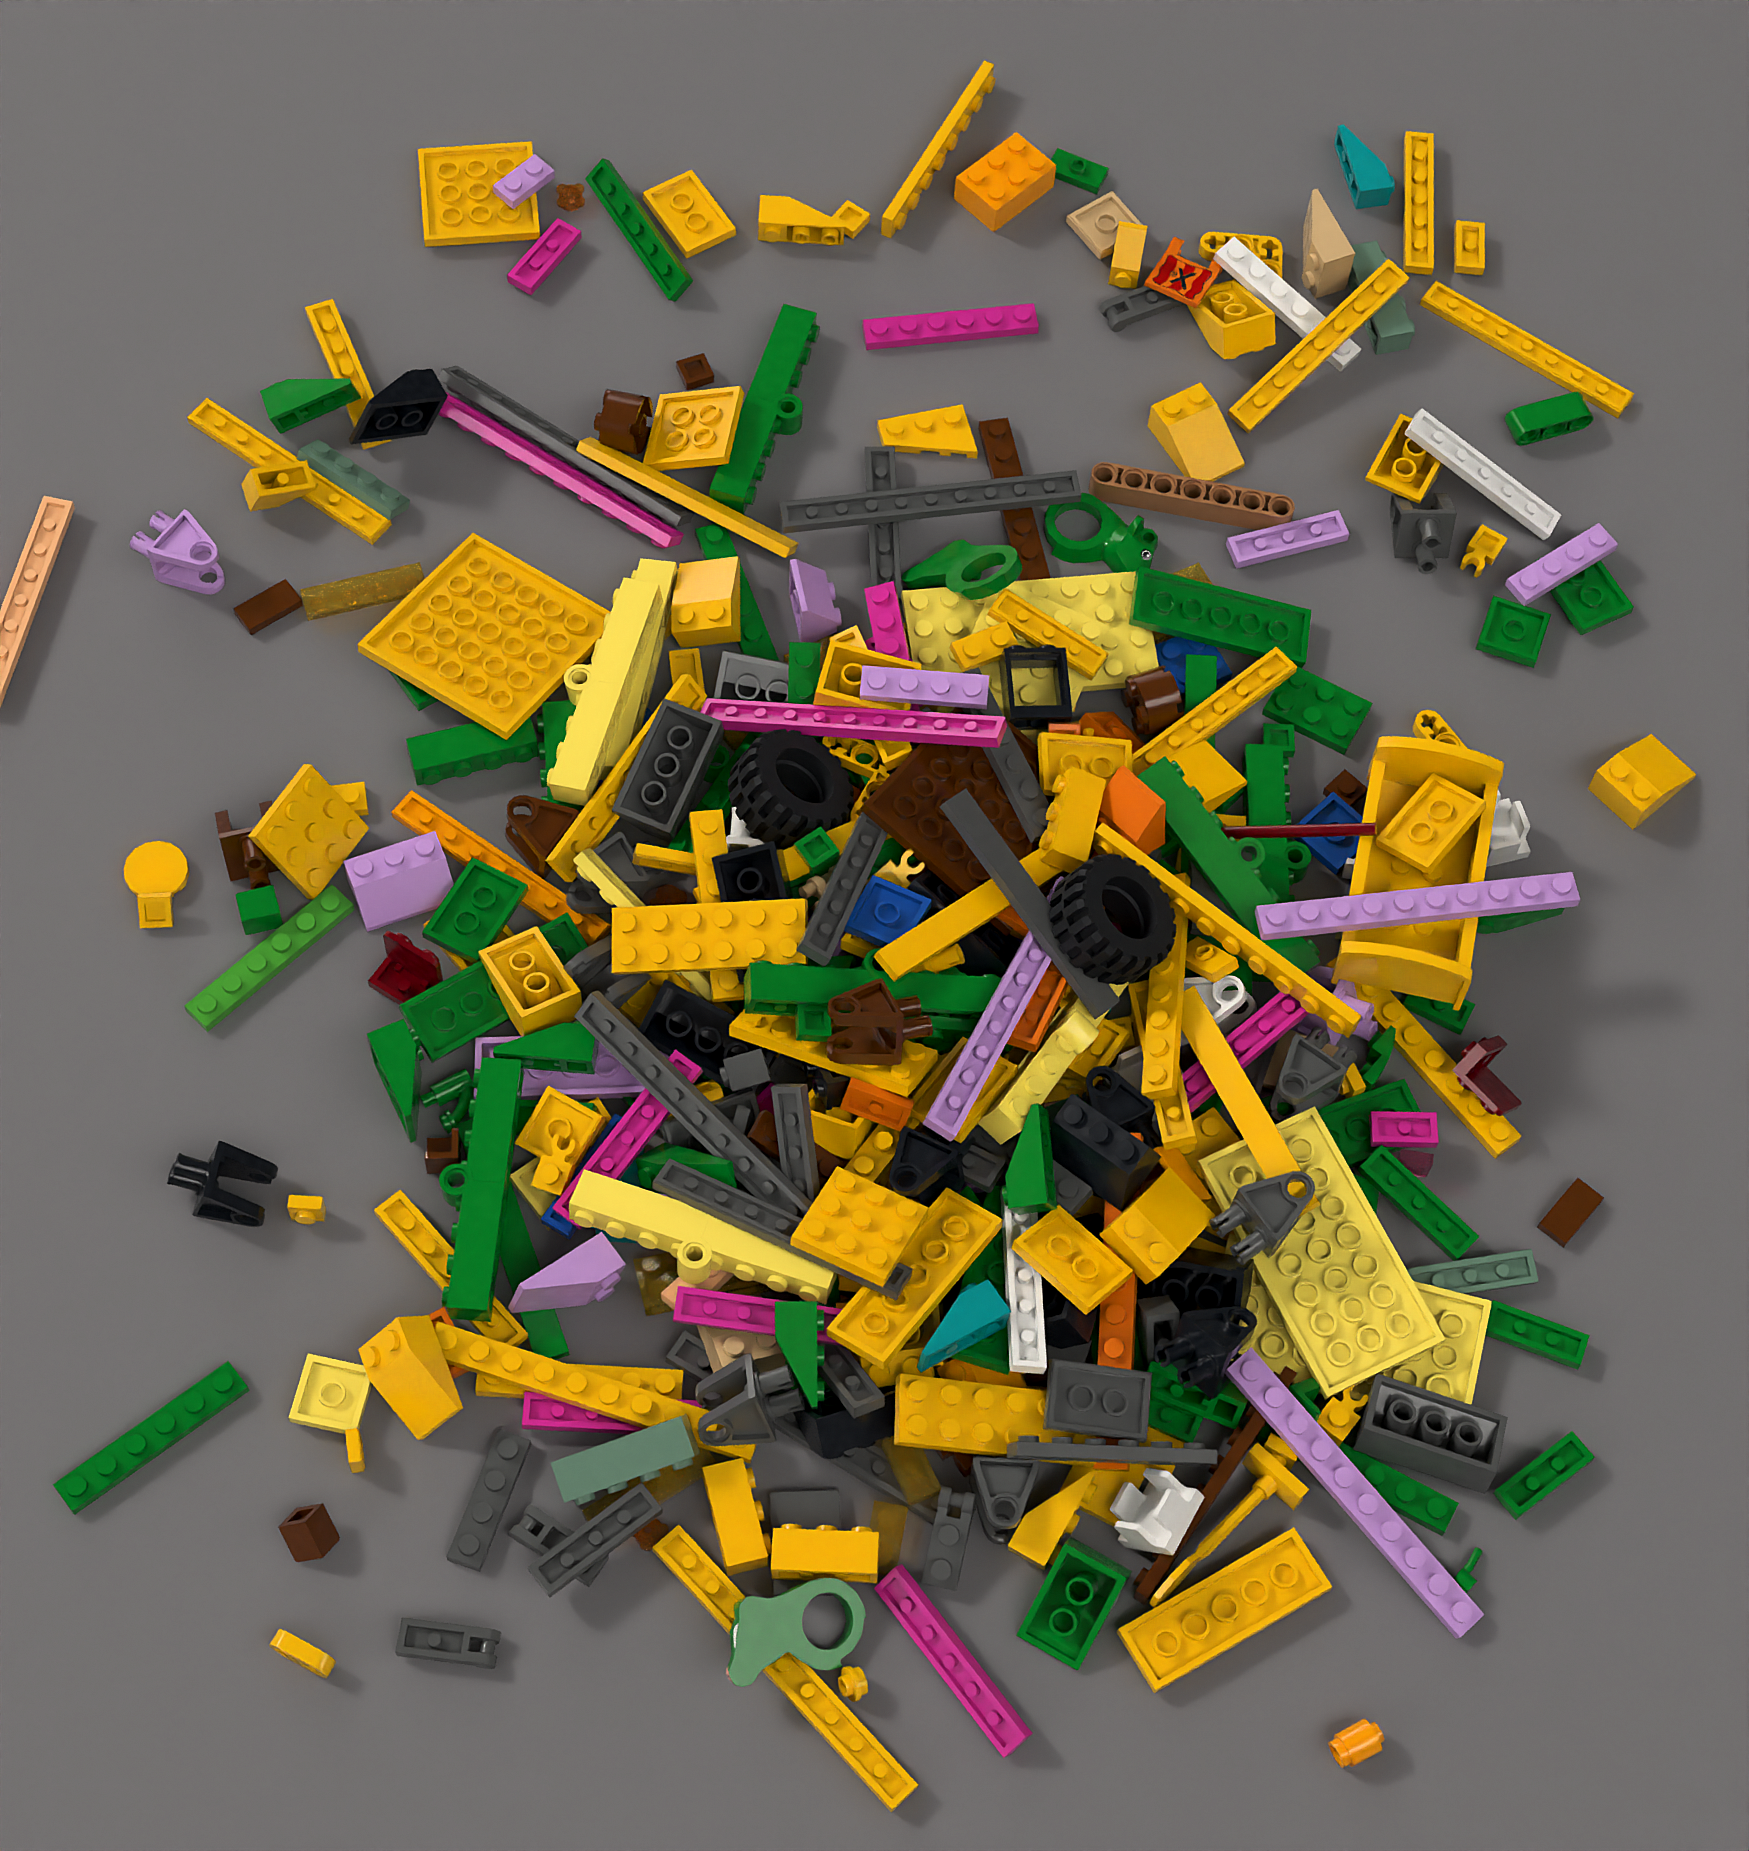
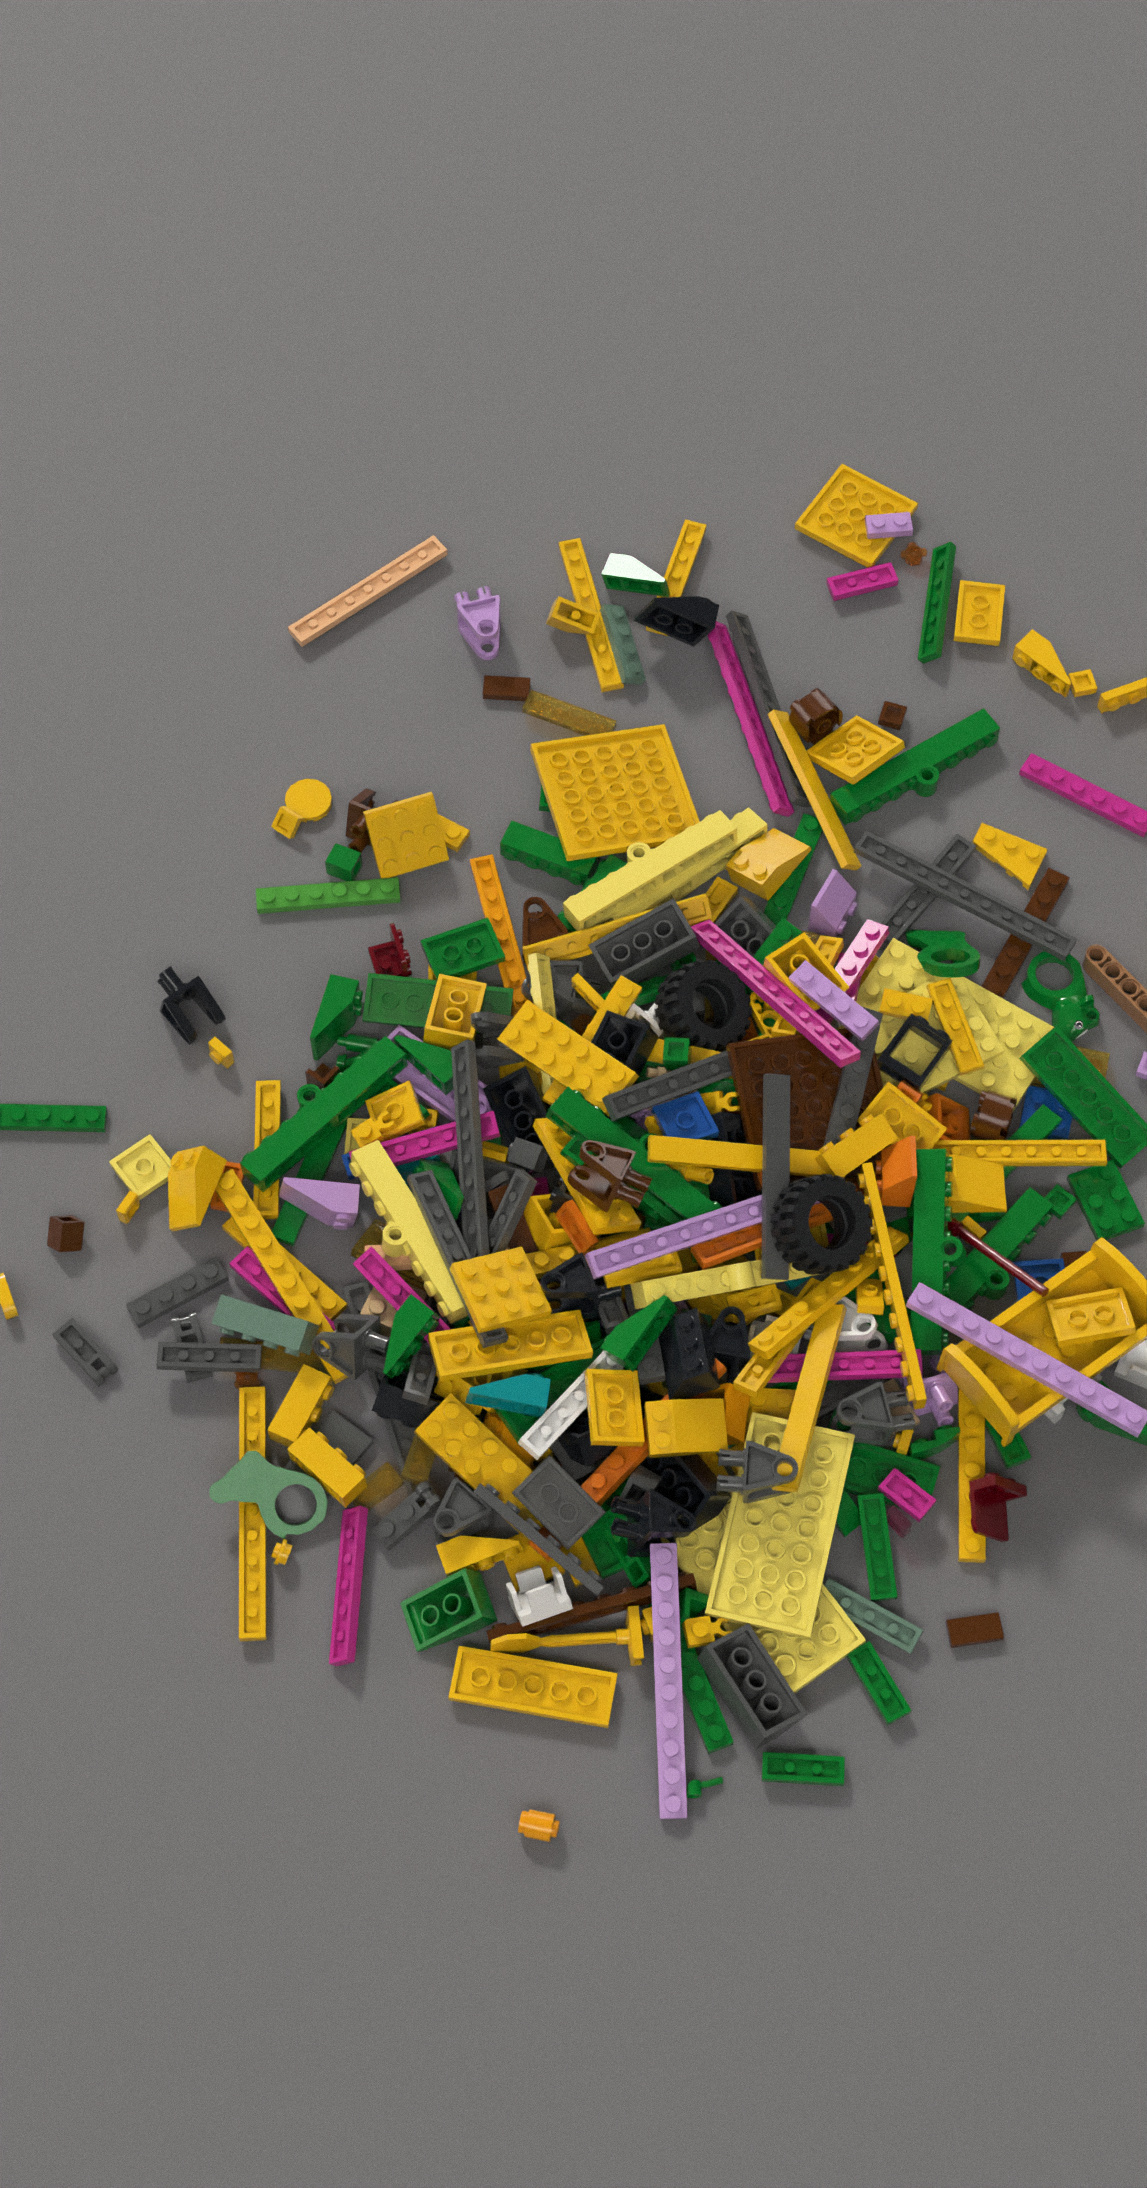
camera: 45 degrees right, 0 degrees up
(399, 880) = (436, 901): lavender slope -> none

